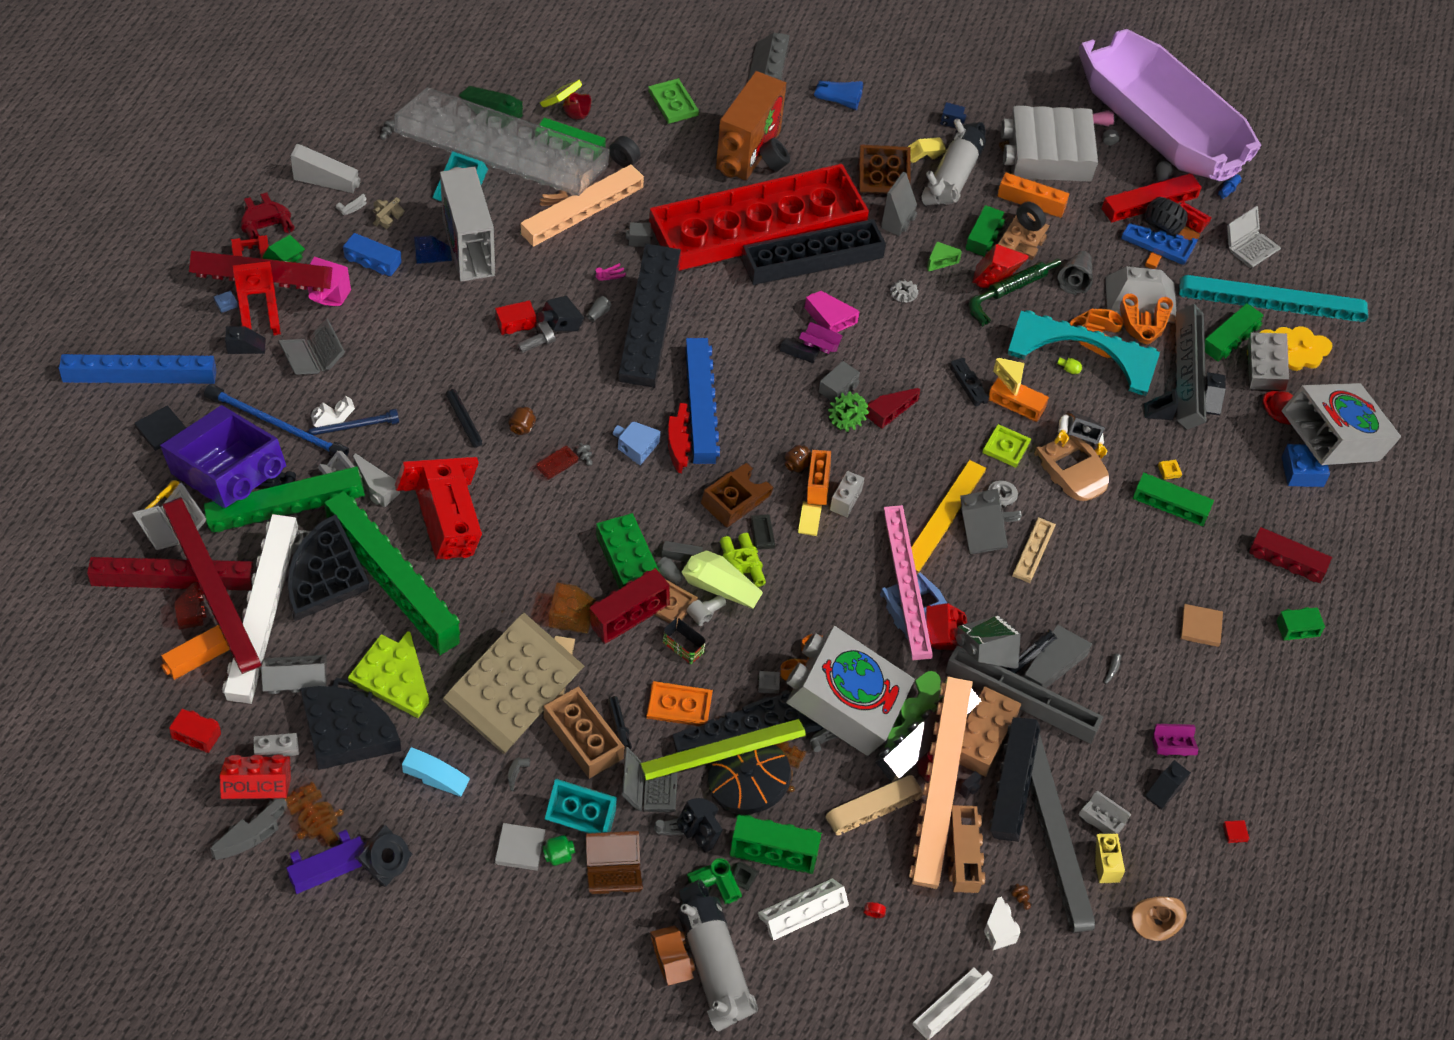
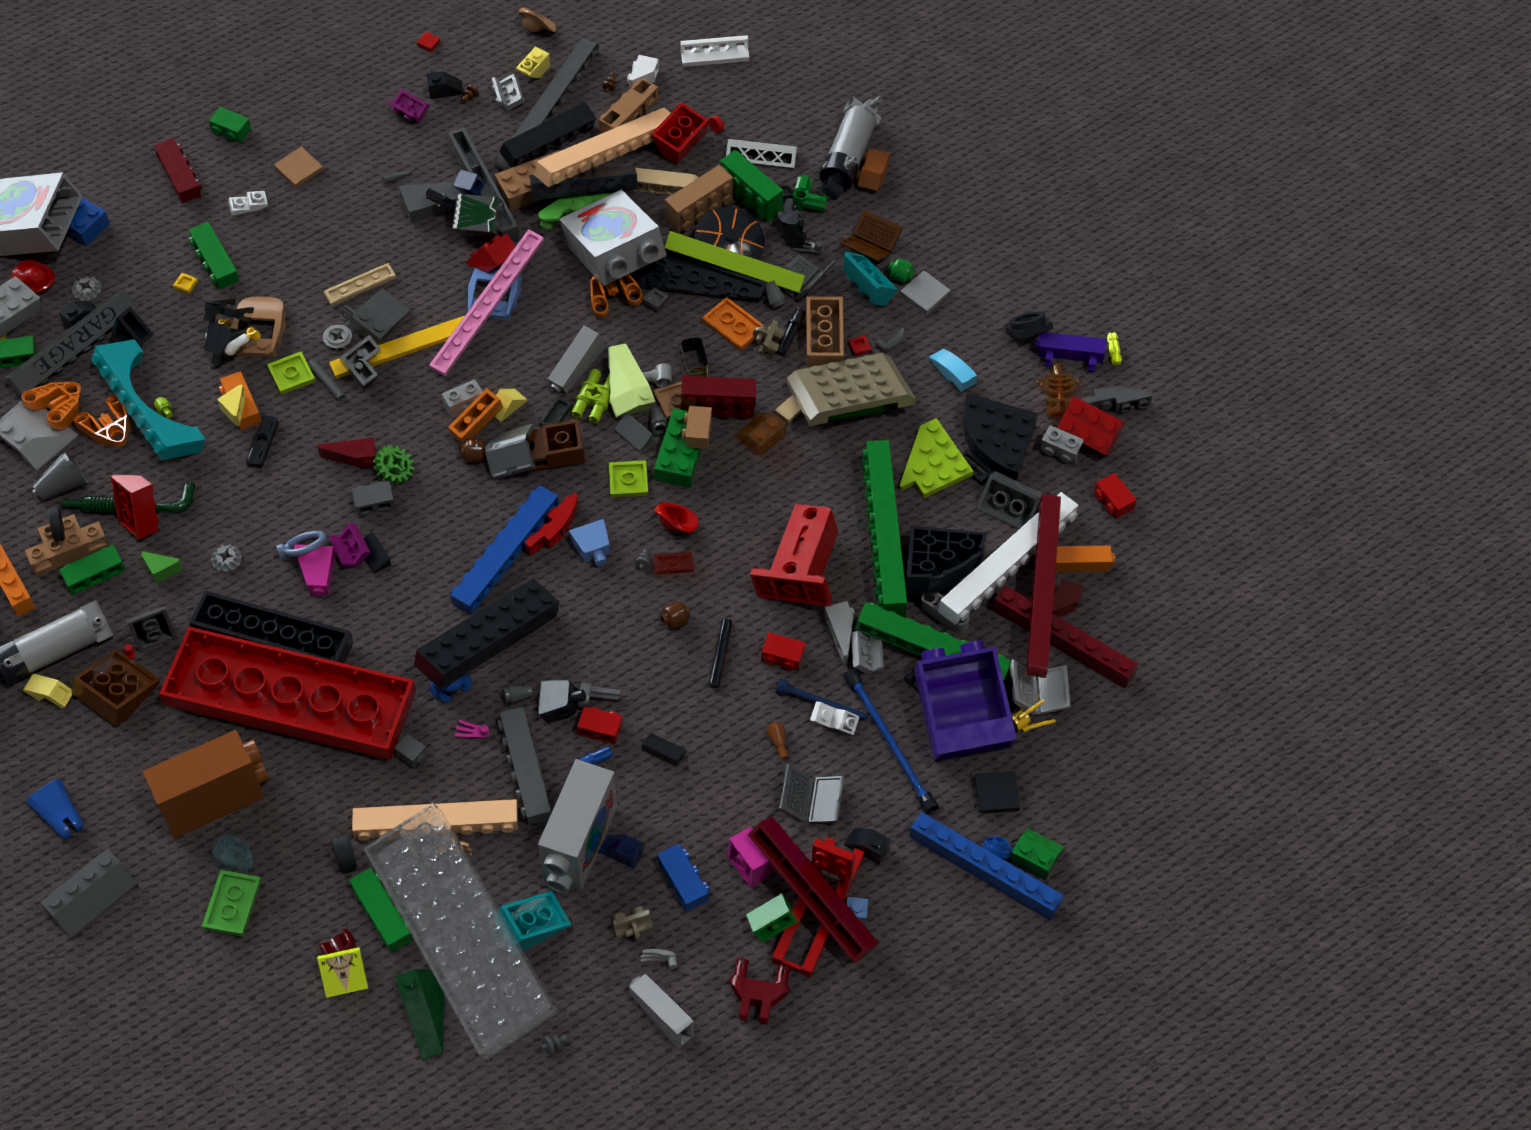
camera: 140 degrees left, 5 degrees up
(101, 399) = (1036, 854): none -> green slope
(135, 386) = (998, 846): none -> blue plate
(283, 896) = (1114, 348): none -> neon yellow axle
(373, 381) = (777, 734): none -> dark orange cone
(411, 440) = (783, 651): none -> red brick
(455, 329) = (663, 749): none -> black slope
(503, 295) = (597, 756): none -> blue axle
(544, 750) = (859, 345): none -> red tile
(549, 266) = (525, 766): none -> dark grey brick
(583, 490) = (676, 517): none -> red hat
(619, 554) = (698, 427): none -> medium nougat brick
(630, 695) = (766, 336): none -> dark tan hips
(653, 511) = (628, 479): none -> lime tile
(658, 746) = (774, 294): none -> dark grey cone
(700, 122) = (233, 852): none -> clear light blue hair
(773, 472) = (510, 452): none -> dark grey piece
(784, 580) = (576, 360): none -> light grey slope
(813, 790) = (698, 199): none -> medium nougat brick
(865, 309) = (285, 549): none -> sand blue piece
(897, 864) = (680, 132): none -> red slope
(955, 467) = (357, 361): none -> dark grey brick
(973, 455) = (326, 379): none -> dark grey piece
(1028, 667) = (469, 183): none -> brick
(1108, 436) = (219, 307): none -> black piece
(1139, 798) = (470, 93): none -> reddish brown hair
(1203, 565) = (252, 202): none -> white slope
(1233, 425) = (86, 294): none -> light grey gear

